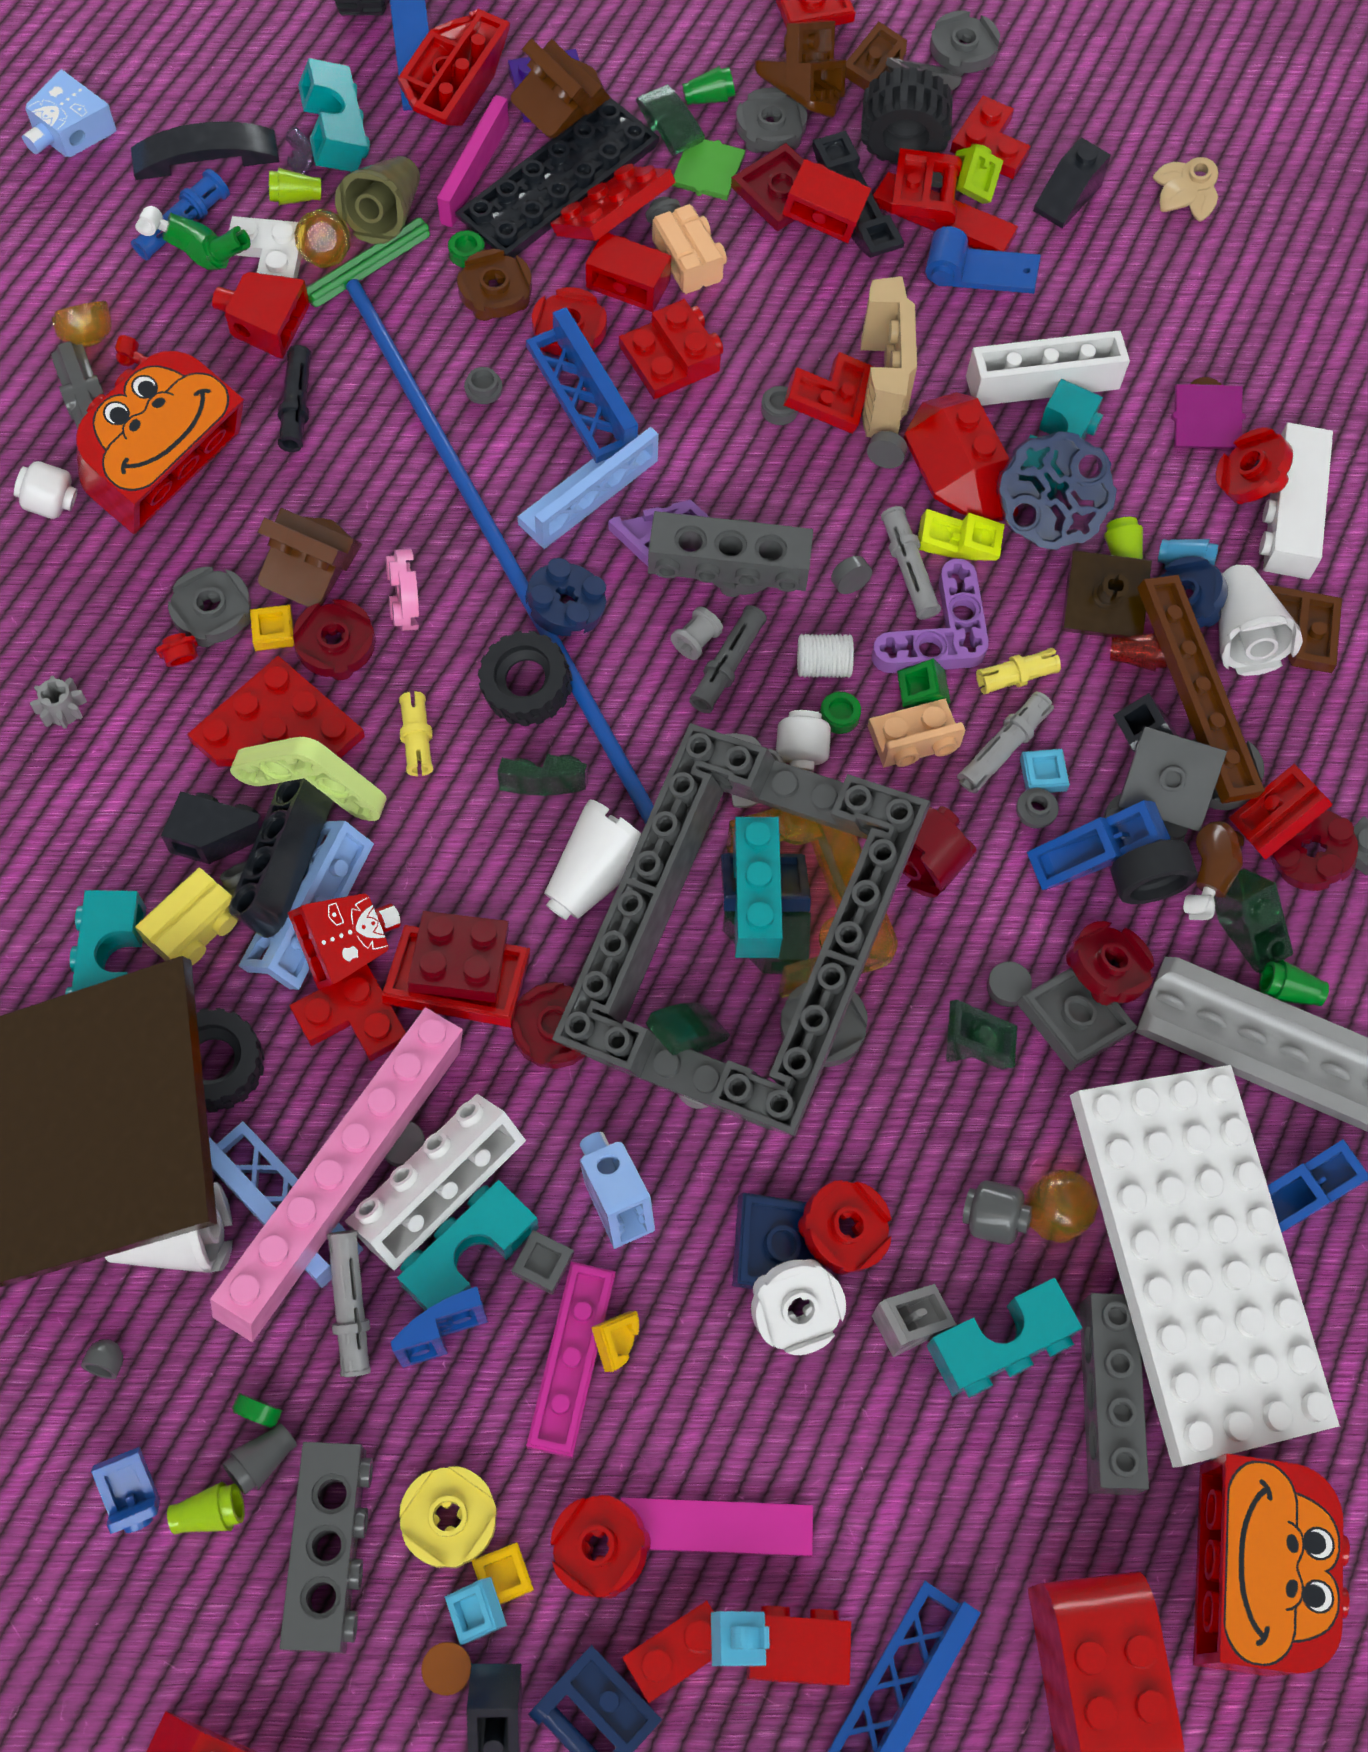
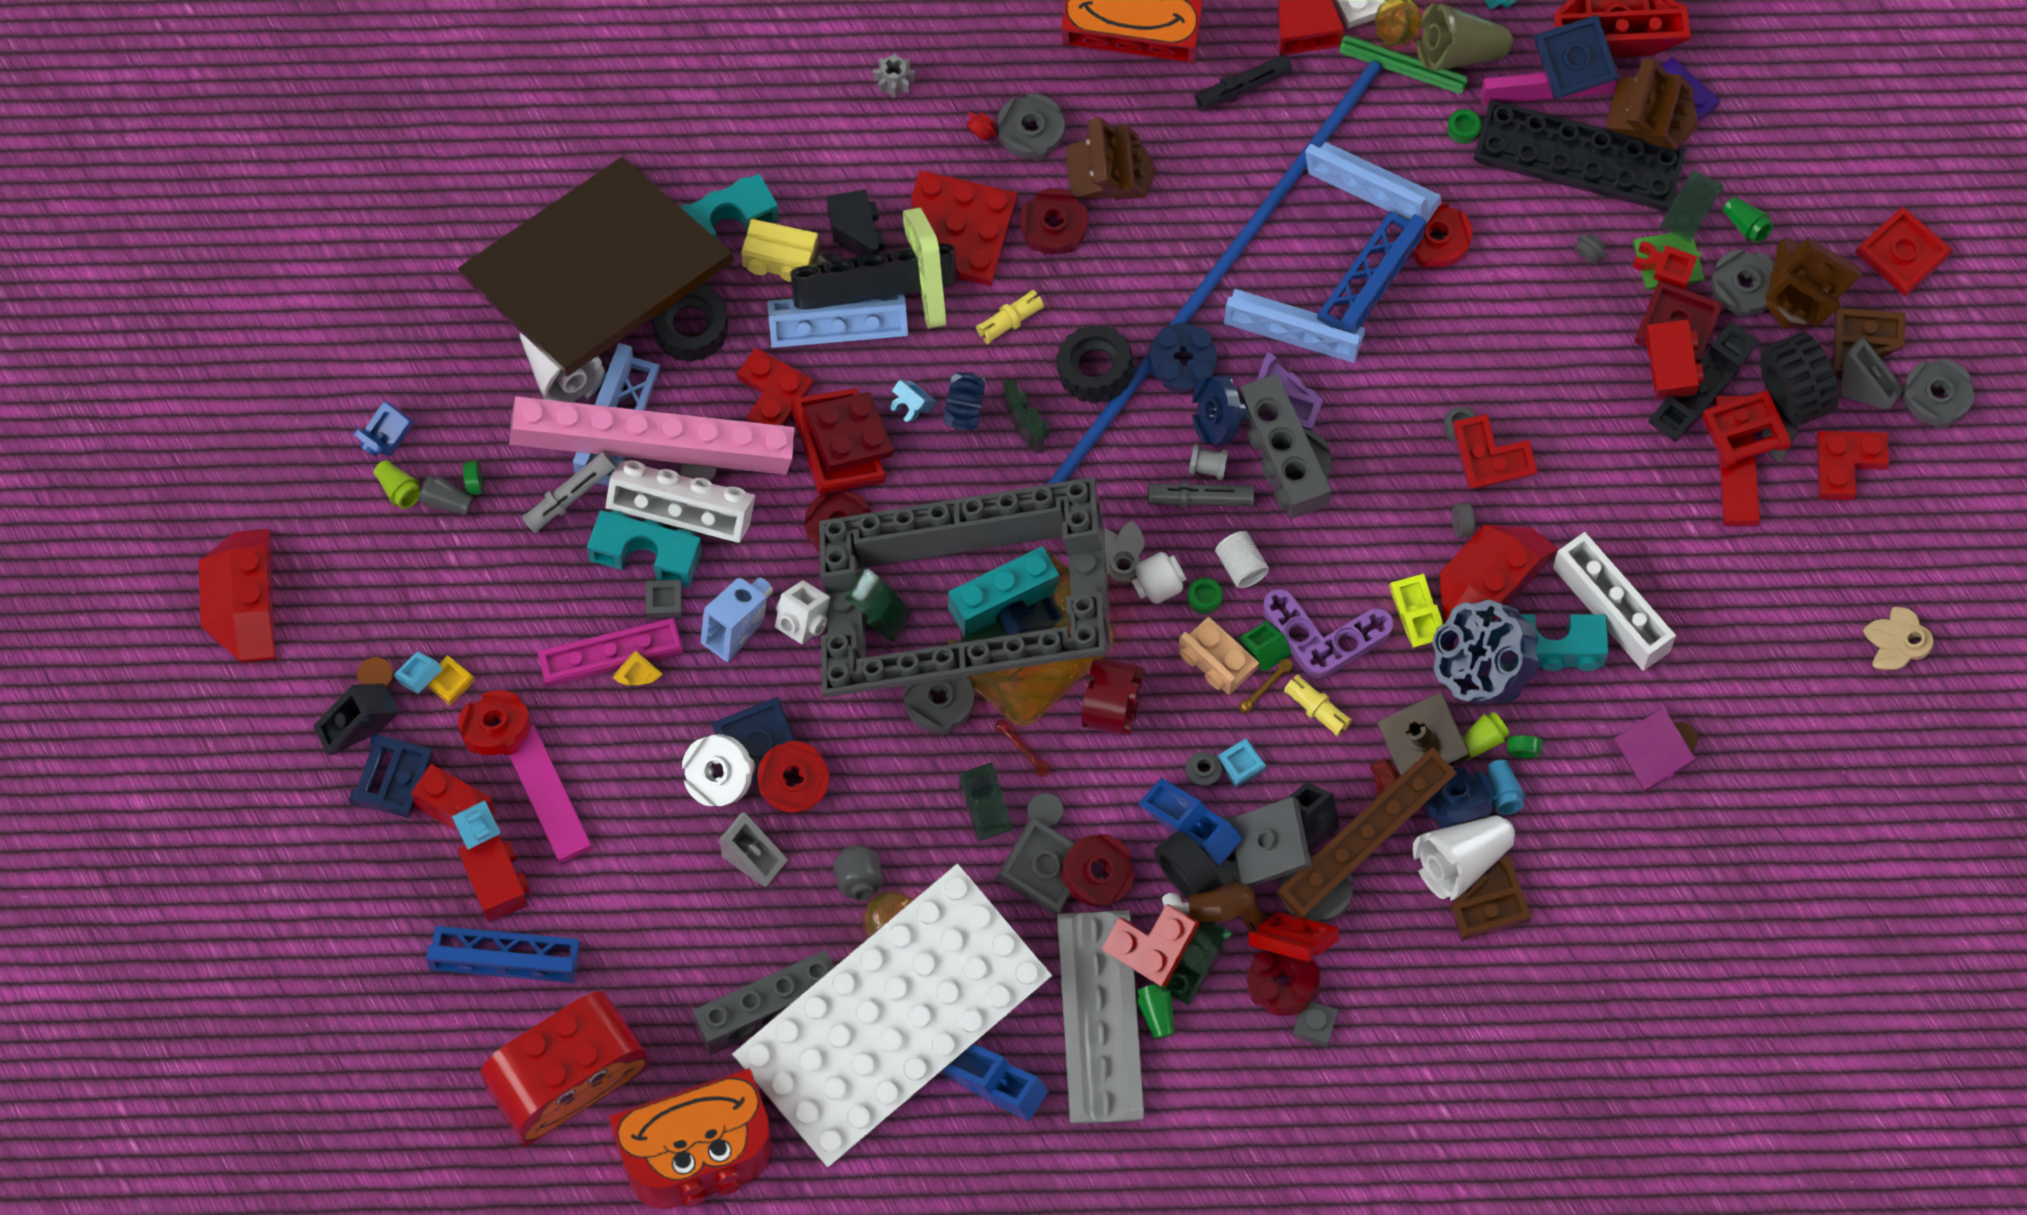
camera: 65 degrees right, 0 degrees up
(103, 1359) = (458, 371): dark grey hinge -> none
(272, 627) = (1040, 175): yellow tile -> none
(319, 1468) = (419, 547): dark grey brick -> none
(342, 935) = (821, 350): red torso -> none
(404, 605) = (1117, 242): bright pink plate -> none
(424, 1335) = (580, 550): blue slope -> none
(454, 872) = (914, 398): none -> medium azure tile
(454, 1545) = (476, 644): light yellow plate -> none
(471, 112) = (1575, 57): none -> dark blue plate
(483, 343) = (1371, 182): none -> light blue fence
(483, 385) = (1339, 205): dark grey plate -> none
(494, 301) = (1440, 180): reddish brown plate -> none
(494, 821) = (964, 400): none -> dark blue gear
(591, 861) = (969, 476): white cone -> none
(612, 202) = (1569, 205): red plate -> none
(628, 271) = (1514, 252): red brick -> none
(652, 1114) = (802, 612): none -> white brick
(656, 571) = (1217, 410): none -> dark blue plate
(672, 349) = (1461, 320): red plate -> none
(694, 255) = (1565, 283): light nougat brick -> none
(719, 161) = (1670, 266): none -> red plate
(851, 574) = (1328, 546): dark grey tile -> none
(892, 329) = (1578, 463): tan plate -> none
(905, 548) = (1377, 575): light grey pin -> none
(953, 964) = (1041, 767): none -> clear red hinge
(956, 682) = (1285, 667): none -> pearl gold hinge
(957, 266) = (1692, 498): blue door -> none
(970, 1359) = (790, 937): teal arch -> none
(978, 173) = (1791, 464): lime bracket -> none
(1017, 729) = (1253, 723): light grey pin -> none
(1073, 182) = (1832, 543): black slope -> none
(1156, 517) = (1524, 746): none -> green tile
(1249, 947) = (1154, 953): none -> plate
(1270, 475) = (1617, 799): red plate -> none
(1298, 511) = (1610, 848): white brick -> none

